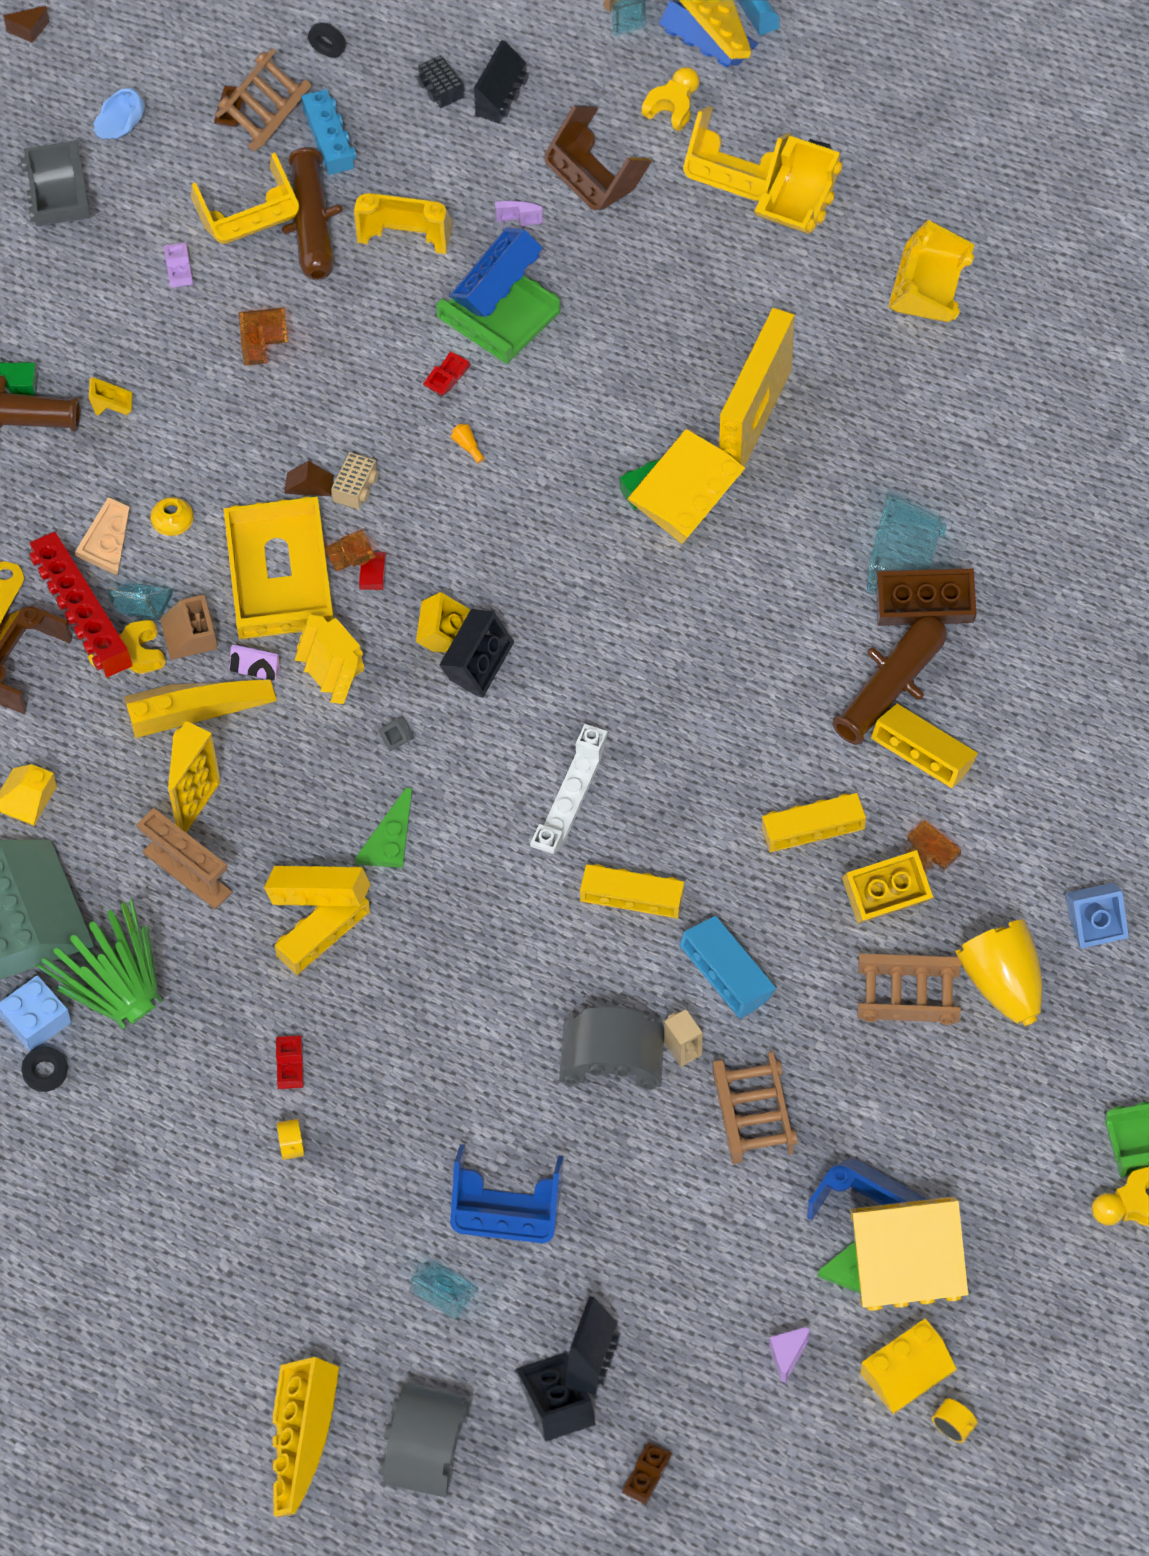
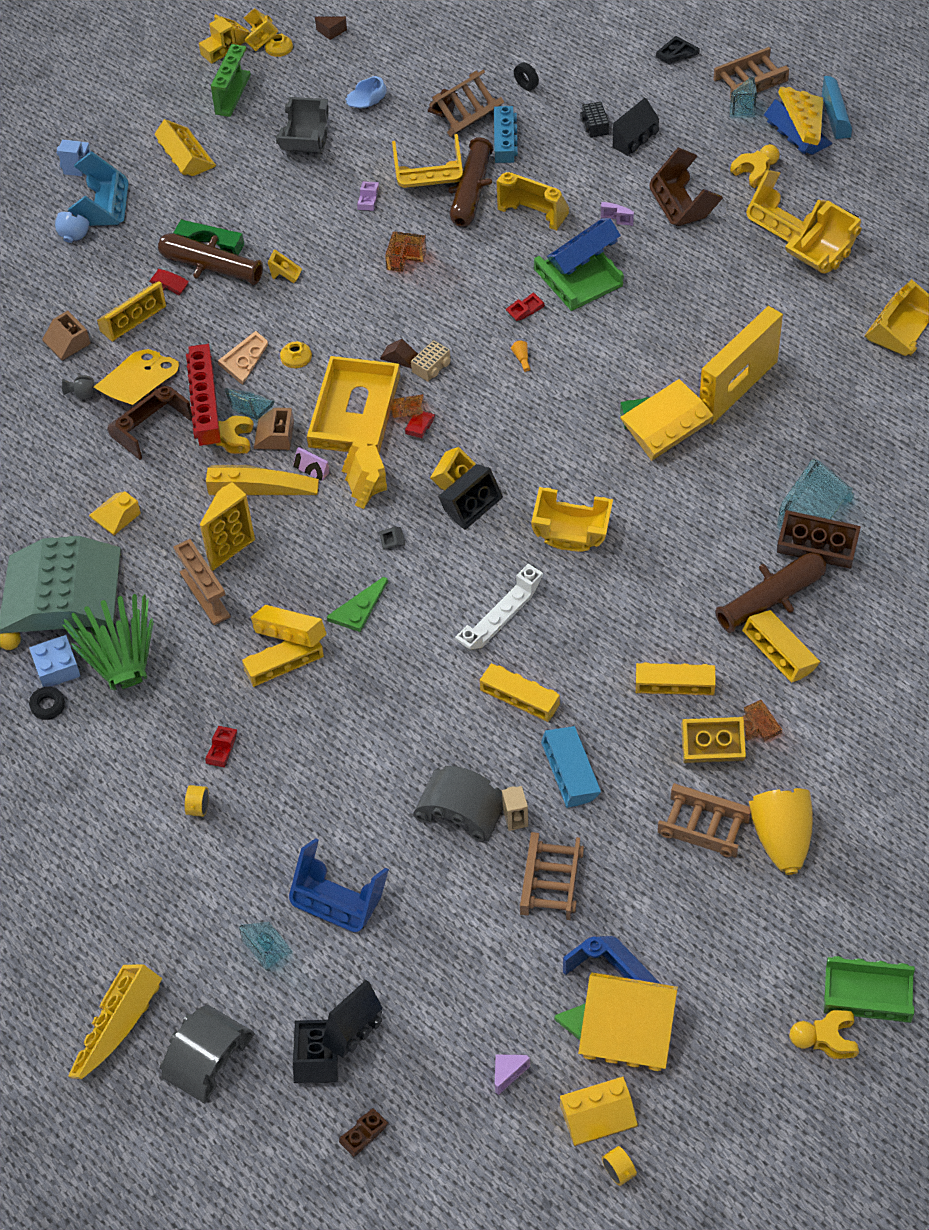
camera: 20 degrees right, 5 degrees down
(618, 657) = (570, 525): none -> yellow cylinder
(1097, 915) = (873, 806): medium blue slope -> none

